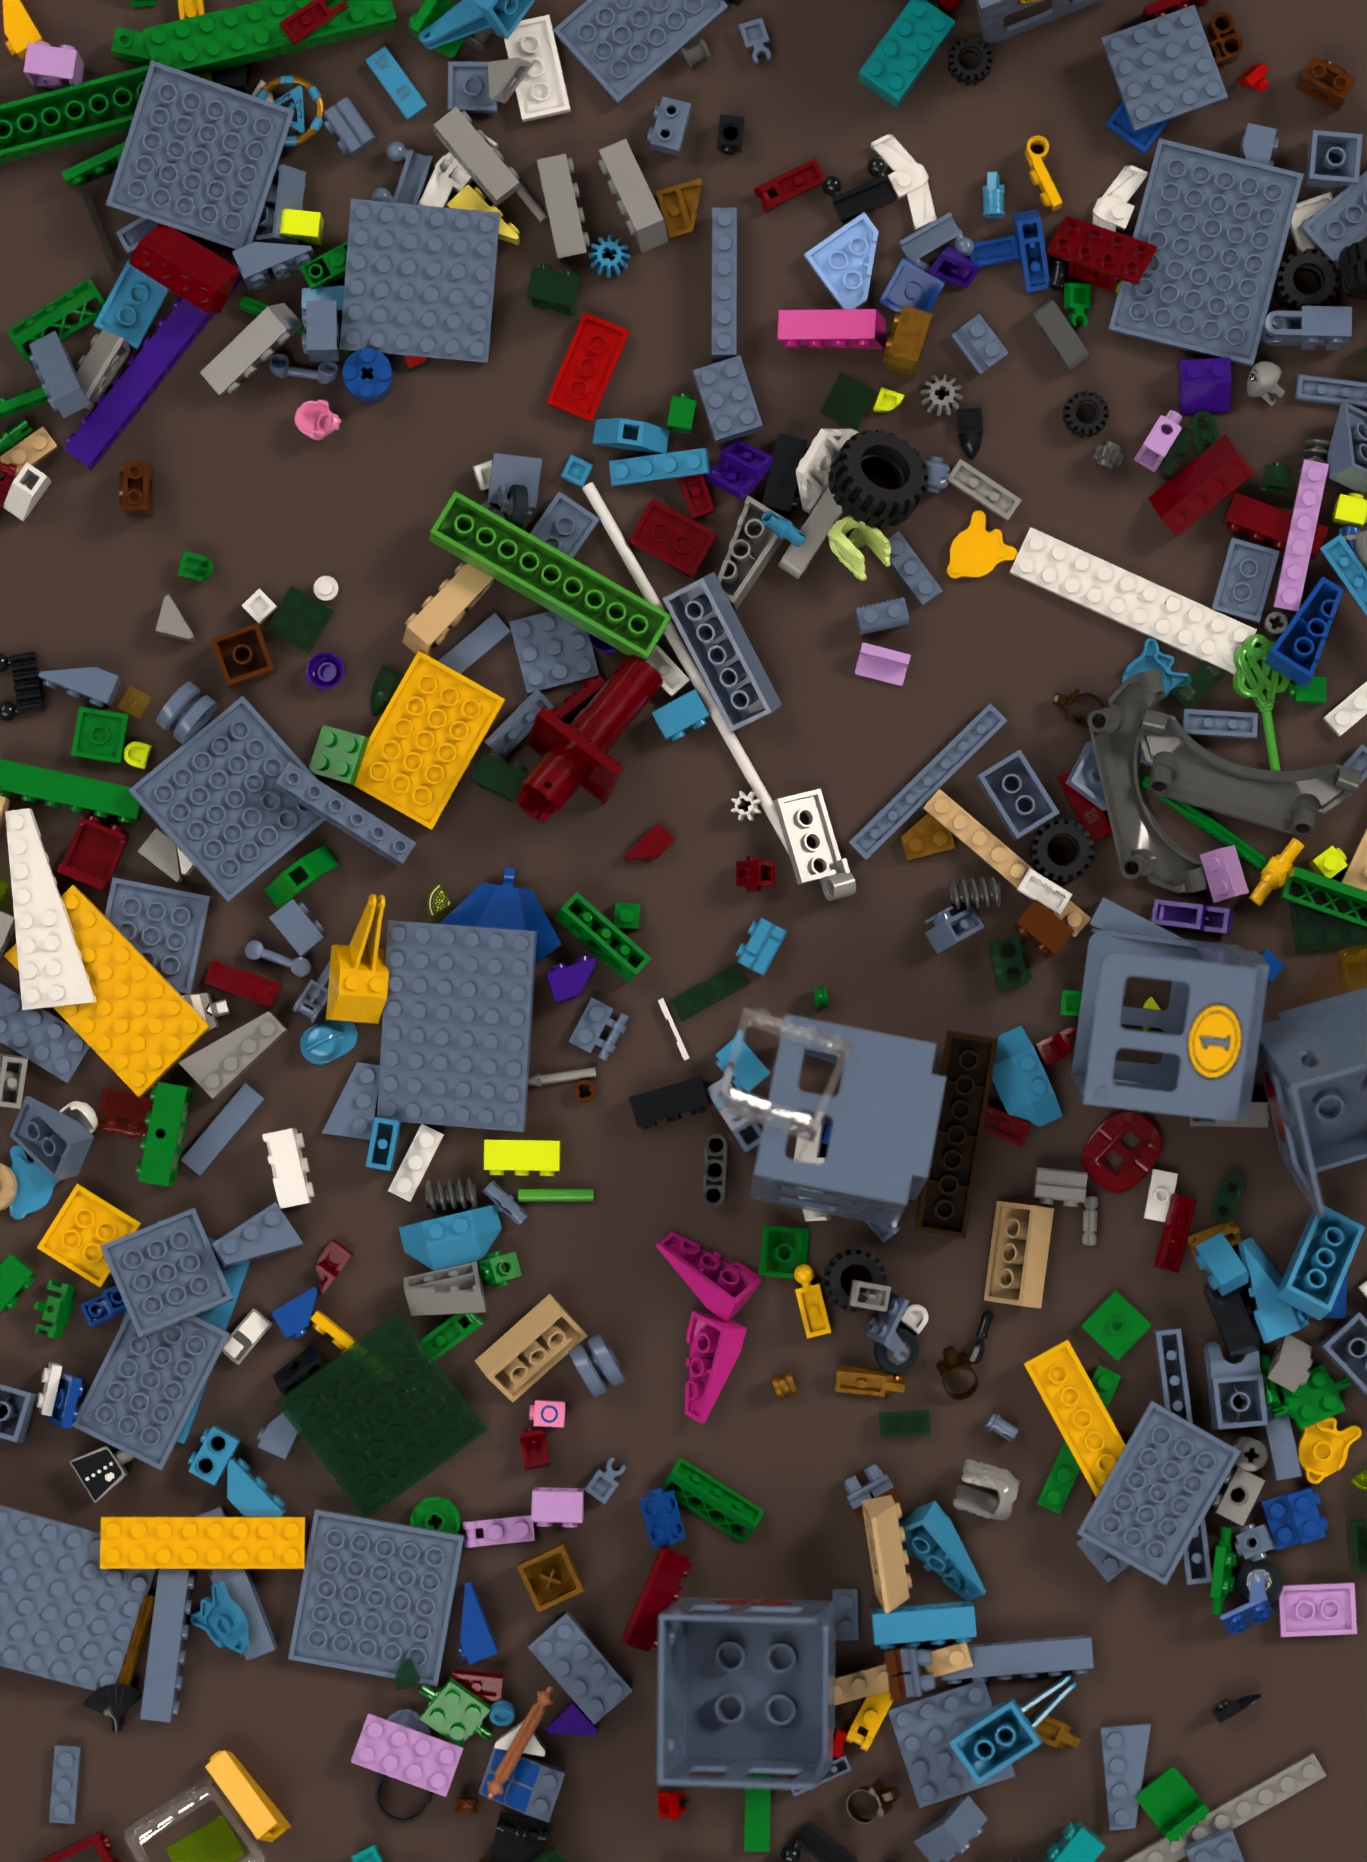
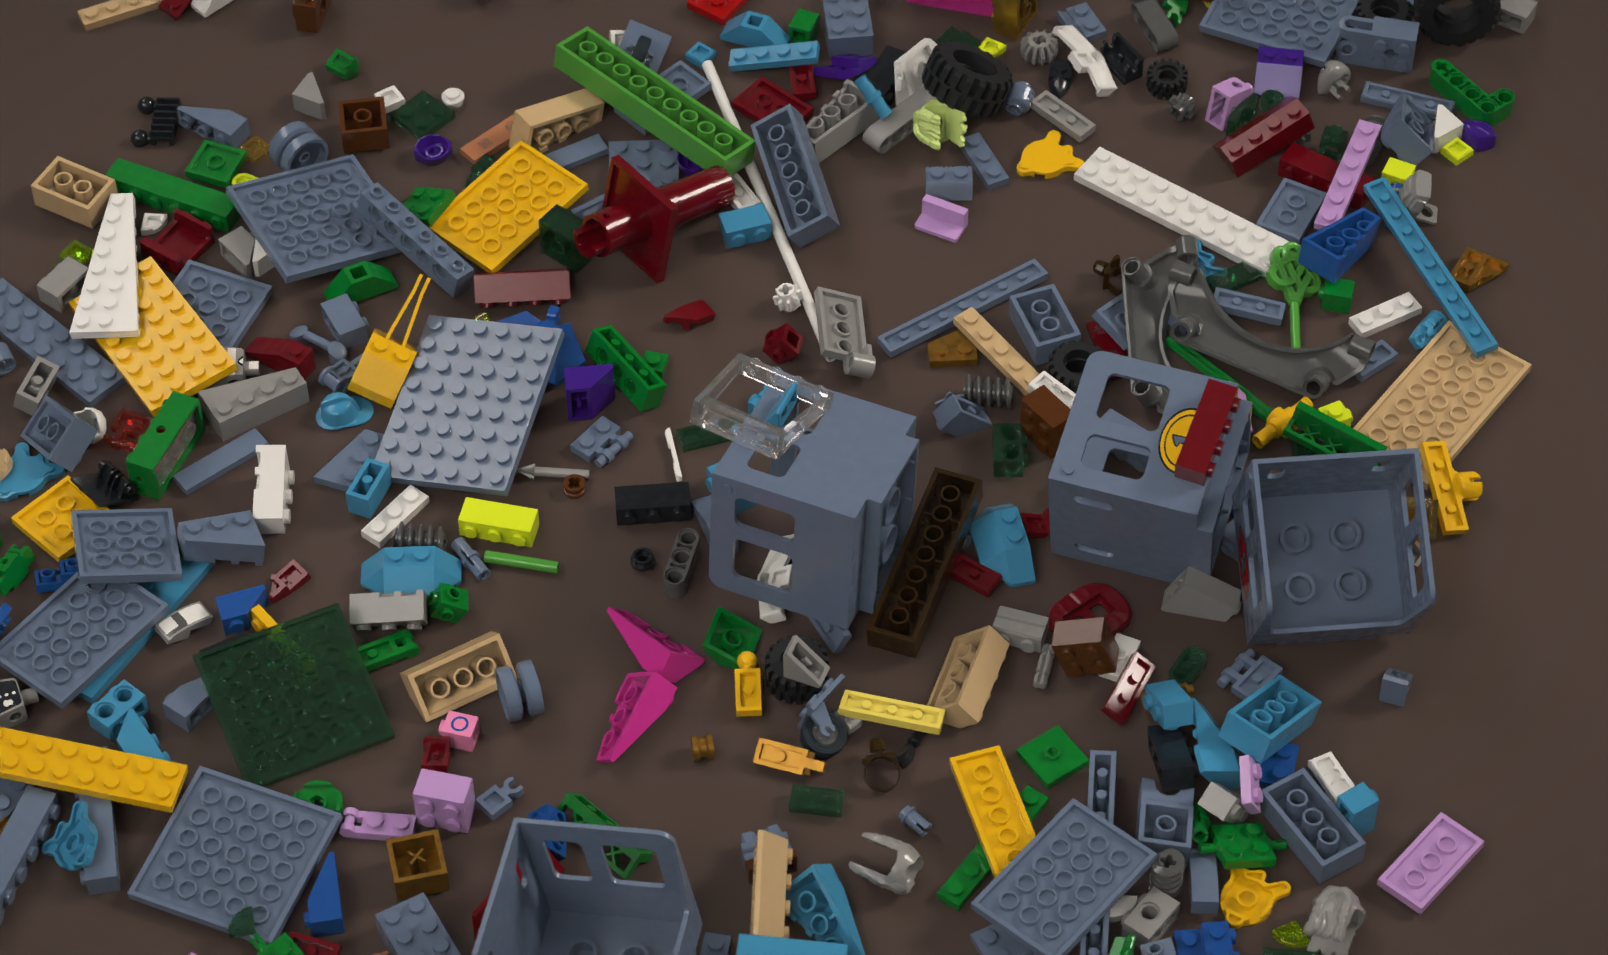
camera: 10 degrees right, 35 degrees down
(57, 827) = (153, 223): none -> white tile
(118, 1193) = (106, 486): none -> black hinge
(383, 641) = (488, 142): none -> nougat tile
(468, 841) = (522, 286): none -> dark red slope
(682, 1169) = (642, 559): none -> black plate
(801, 1073) = (783, 406): none -> dark azure slope
(957, 1315) = (892, 712): none -> light yellow plate
(996, 403) = (1087, 59): none -> white plate
(1032, 395) = (1122, 59): none -> black hinge
(1130, 1208) = (1085, 647): none -> reddish brown brick
(1236, 1038) = (1206, 432): none -> dark red brick
(1293, 1203) = (1255, 677): none -> sand blue plate
(1312, 1336) = (1249, 782): none -> lavender plate

